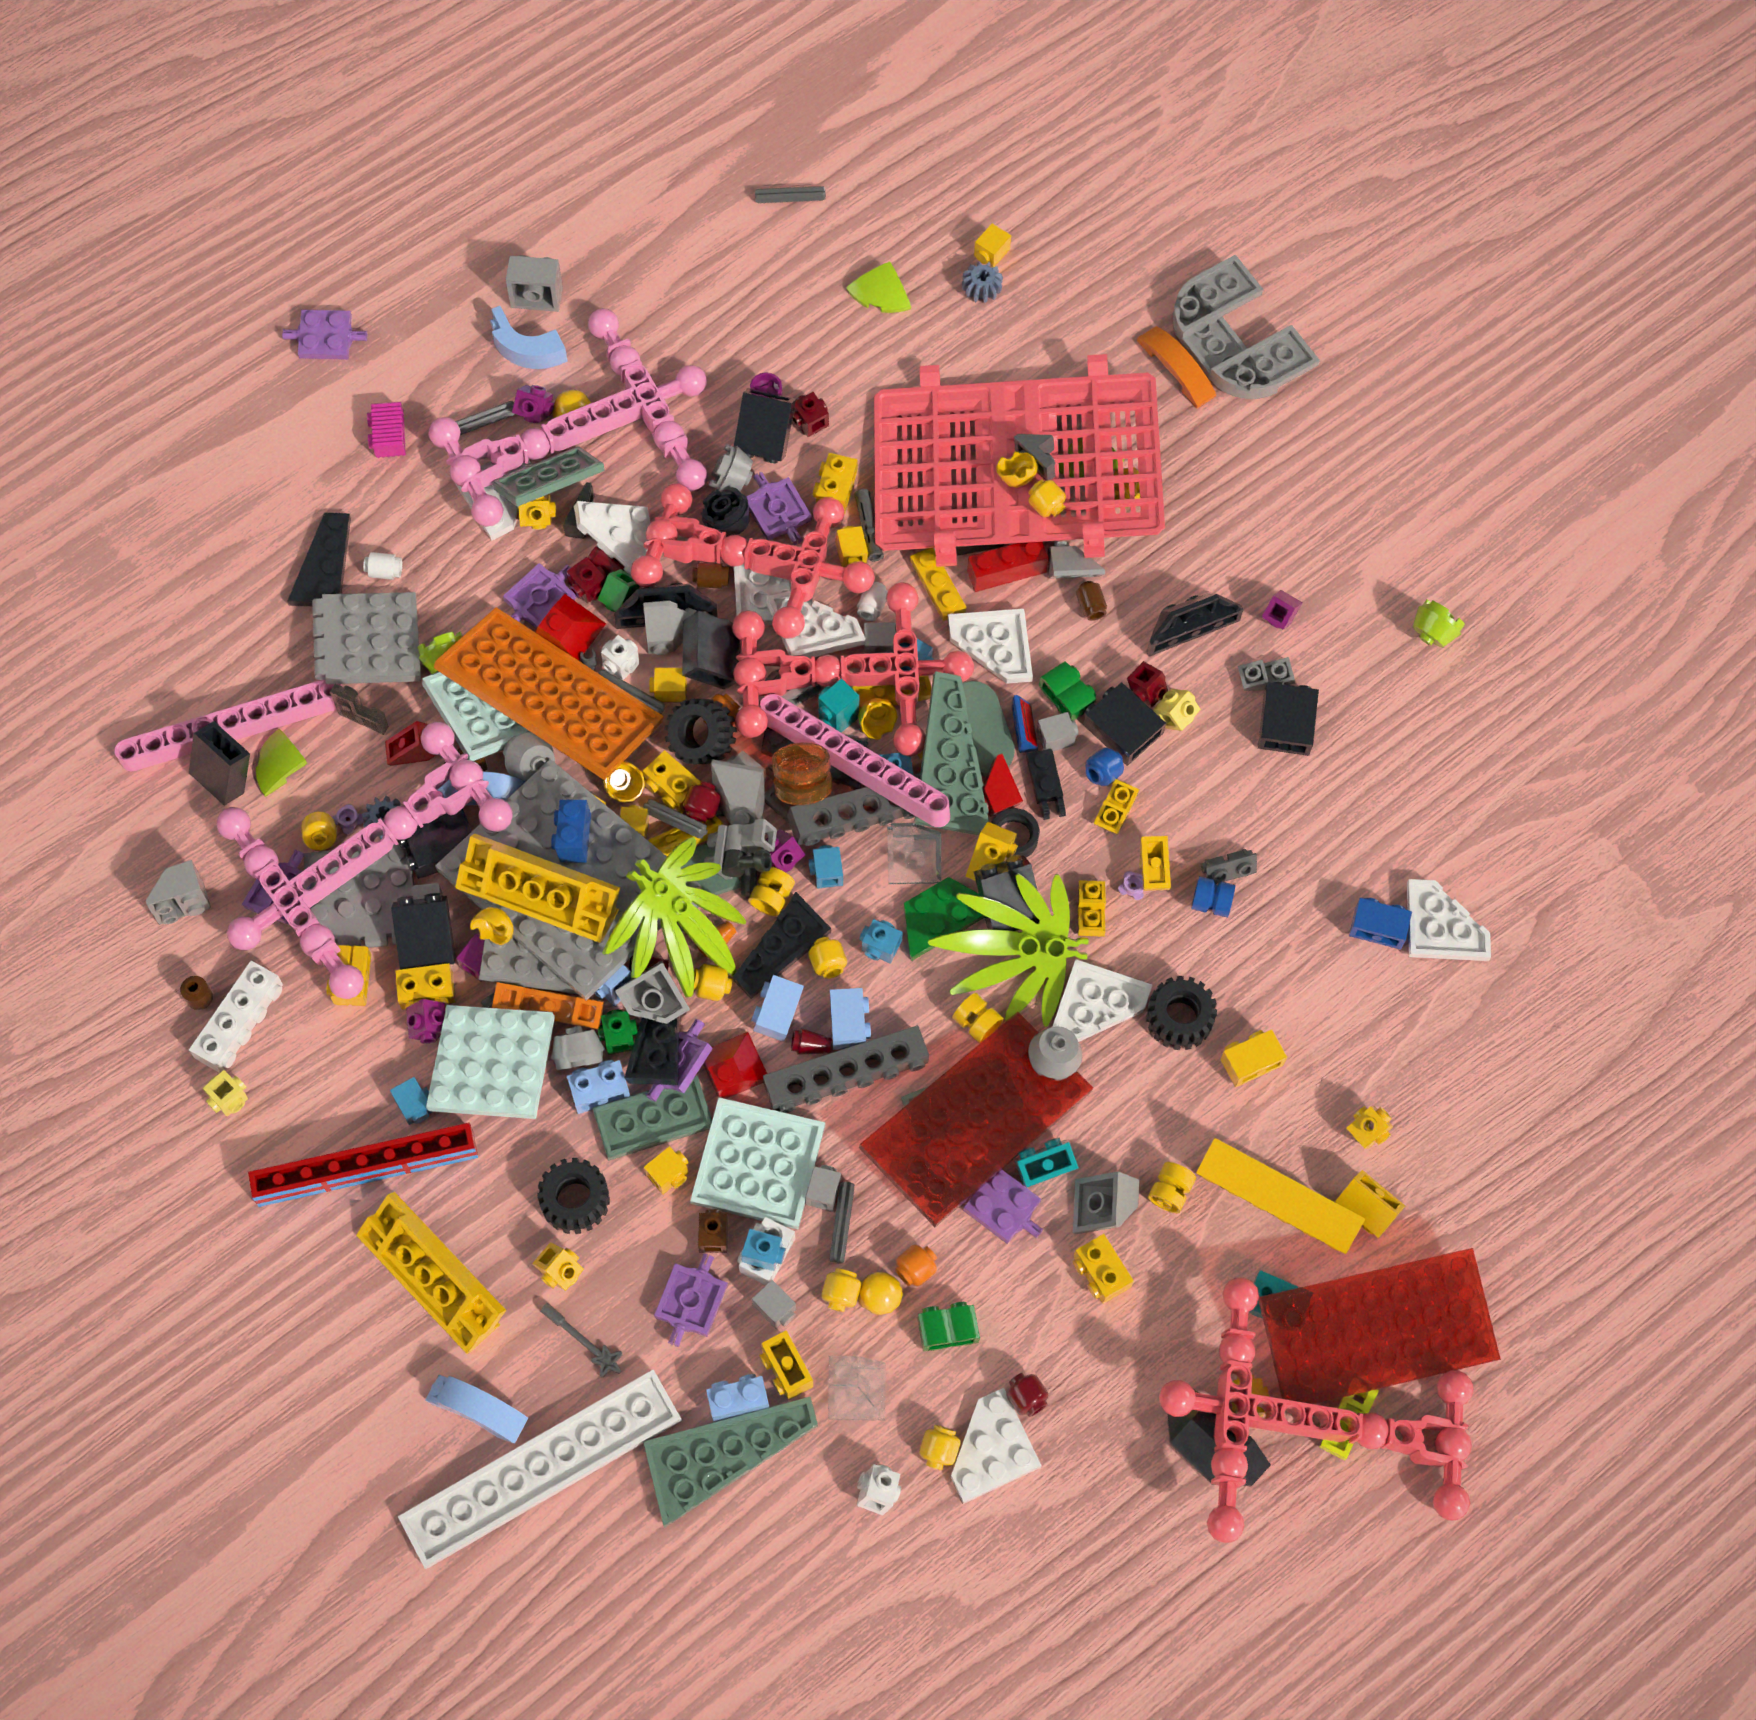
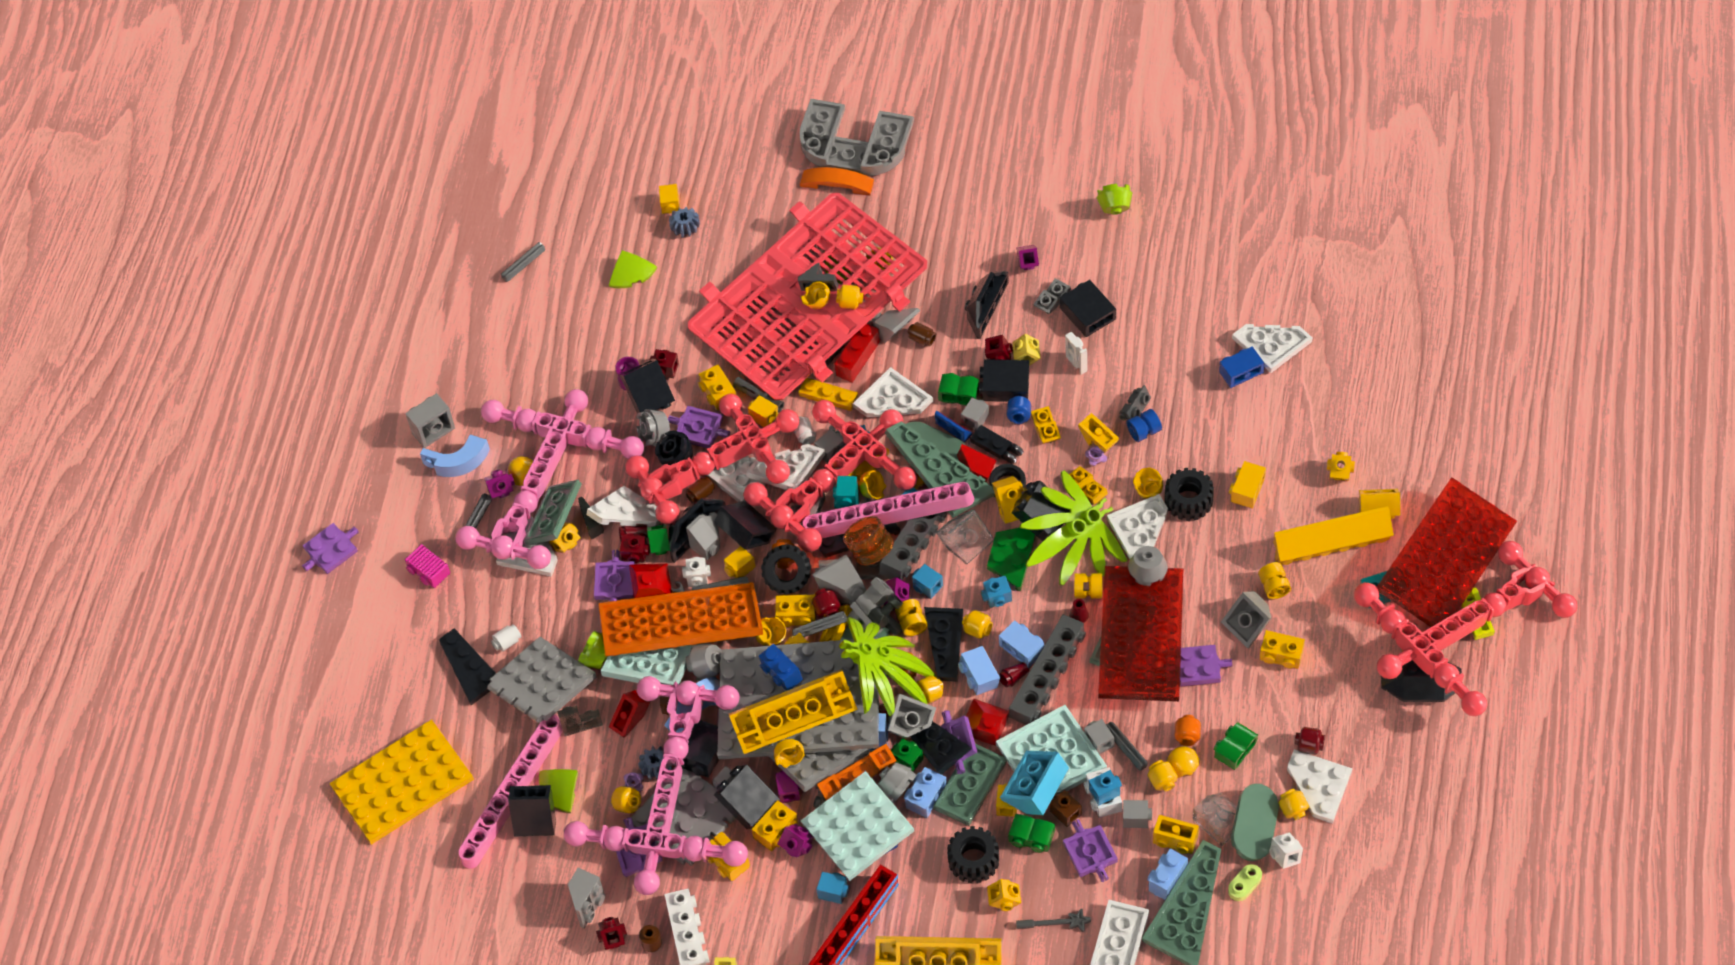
camera: 35 degrees left, 10 degrees down
(151, 625) = (401, 781): none -> yellow plate
(168, 954) = (611, 933): none -> dark red brick
(653, 1226) = (1031, 833): none -> green brick
(703, 1178) = (1035, 781): none -> medium azure slope
(808, 1483) = (1245, 881): none -> yellowish green plate
(881, 1428) = (1254, 822): none -> sand green tile
(942, 1042) = (1079, 611): none -> dark red cone
(1045, 1163) = (1200, 623): teal brick -> none
(1152, 963) = (1148, 482): none -> yellow hair
(1223, 756) = (1075, 353): none -> white plate

